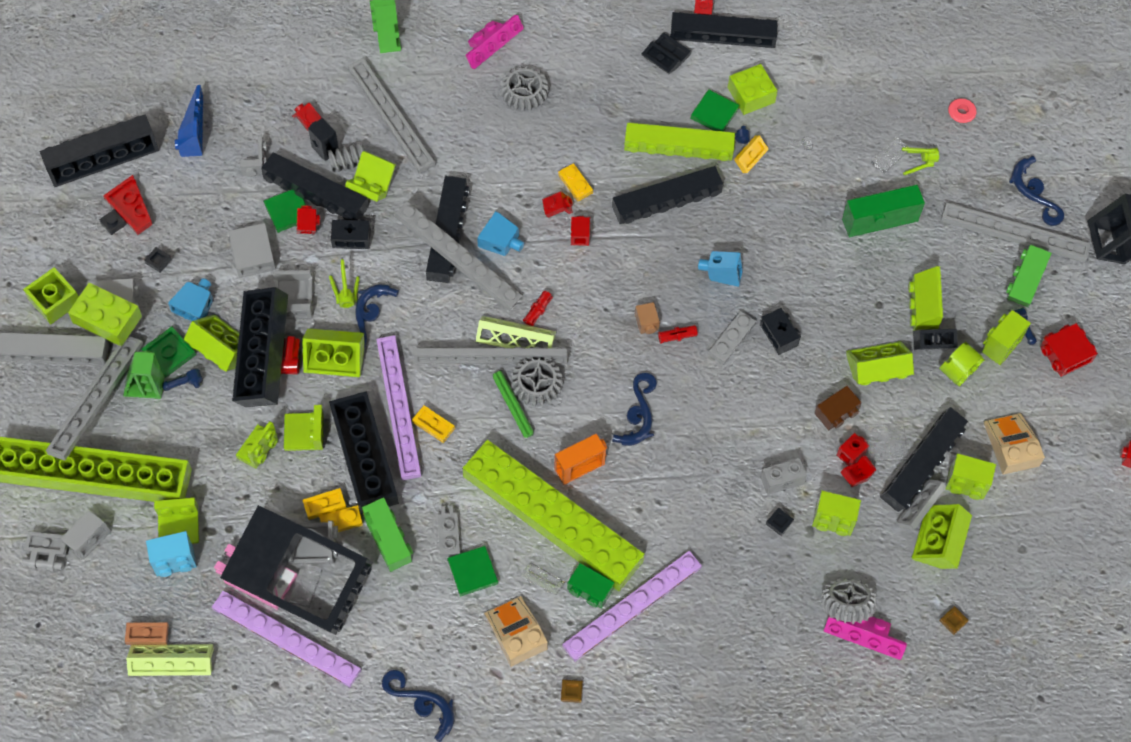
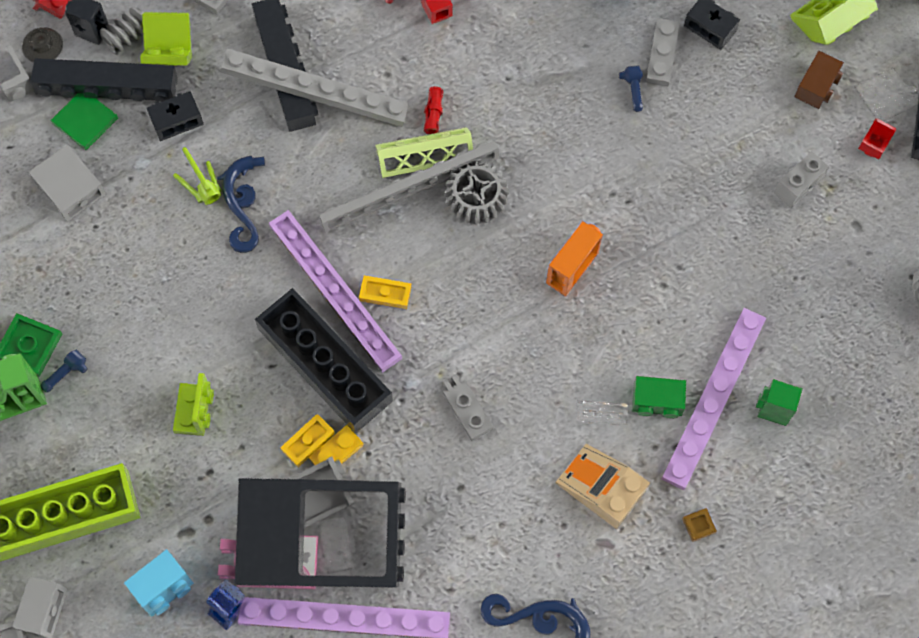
camera: 25 degrees left, 5 degrees up
(178, 517) = (143, 538): lime bracket -> none
(192, 300) = (27, 273): dark azure torso -> none
(208, 588) = (225, 604): none -> clear blue plate
(214, 340) = (84, 307): lime slope -> none
(260, 347) = (140, 291): black brick -> none
(287, 149) = (48, 49): none -> clear smoke piece
(290, 356) = (179, 292): red piece -> none
(299, 287) = (142, 214): light grey panel -> none
(304, 430) = (239, 365): lime bracket -> none
(307, 220) = (115, 121): red brick -> none
(333, 352) = (226, 260): lime slope -> none
(387, 534) = (401, 443): bright green wedge -> none
(472, 571) = (517, 440): green tile -> none
(500, 236) = (348, 46): dark azure torso -> none
(513, 404) = (462, 230): bright green axle -> none
(553, 514) = (574, 334): lime brick -> none
(633, 439) = (609, 173): dark blue plant -> none
(647, 318) = (561, 69): medium nougat brick -> none
(674, 628) = (778, 402): none -> green brick
(677, 334) = (598, 76): red pin -> none
(698, 345) = (633, 76): none -> dark blue piece
(779, 521) = (822, 231): black plate -> none
(836, 513) = (881, 195): lime brick -> none
(852, 449) = (857, 119): red brick -> none

